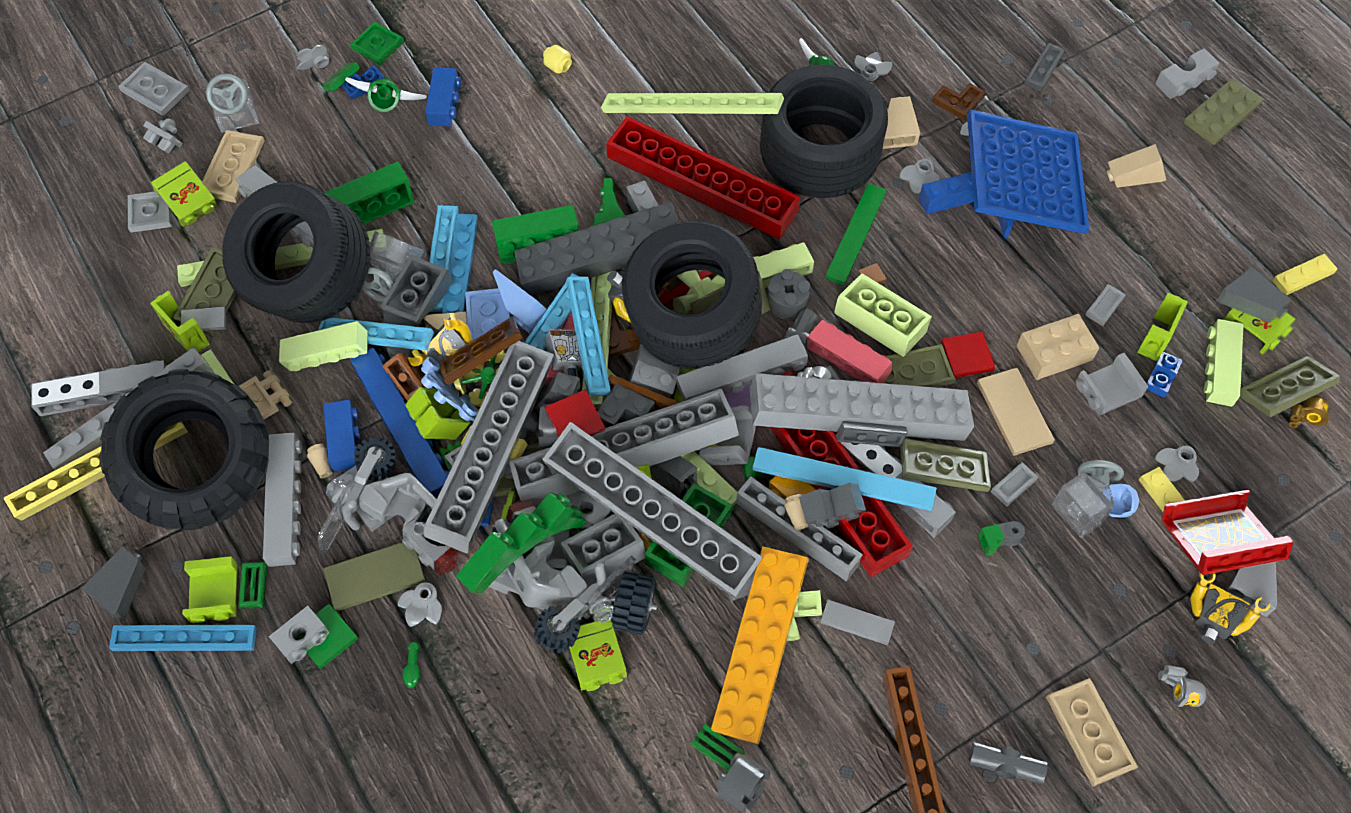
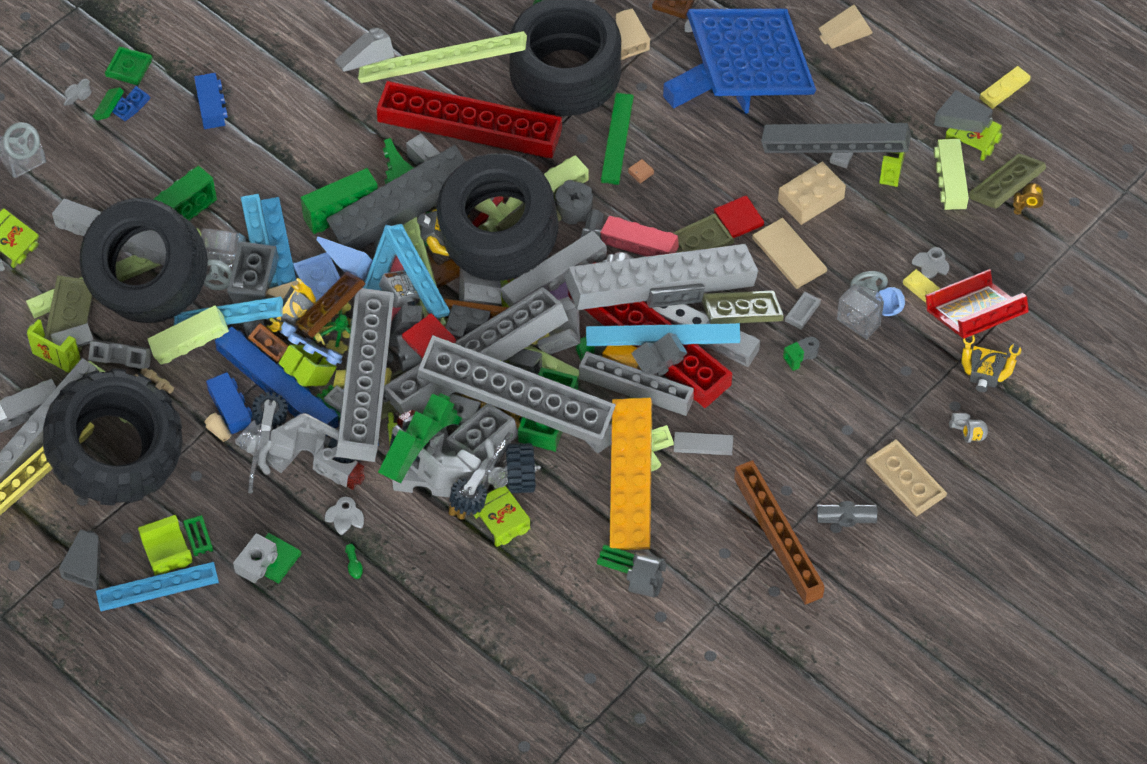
camera: 15 degrees left, 5 degrees down
(233, 157) = (38, 202): tan tile -> none
(257, 353) = (120, 353): none -> light grey arch
(281, 500) = (200, 469): light grey brick -> none
(373, 576) = (296, 504): olive tile -> none
(384, 94) = (155, 110): green helmet -> none
(557, 59) = (303, 44): light yellow head -> none
(620, 79) = (368, 49): none -> light grey slope
(795, 512) = (632, 368): tan cone -> none
(882, 314) = (658, 200): yellowish green brick -> none
(918, 176) = (658, 75): light grey plate -> none
(1103, 291) = (836, 138): none -> dark grey brick
(1112, 385) = (864, 214): light grey panel -> none
(1163, 374) = (904, 195): blue slope -> none
(1255, 582) = (1007, 334): light grey slope -> none

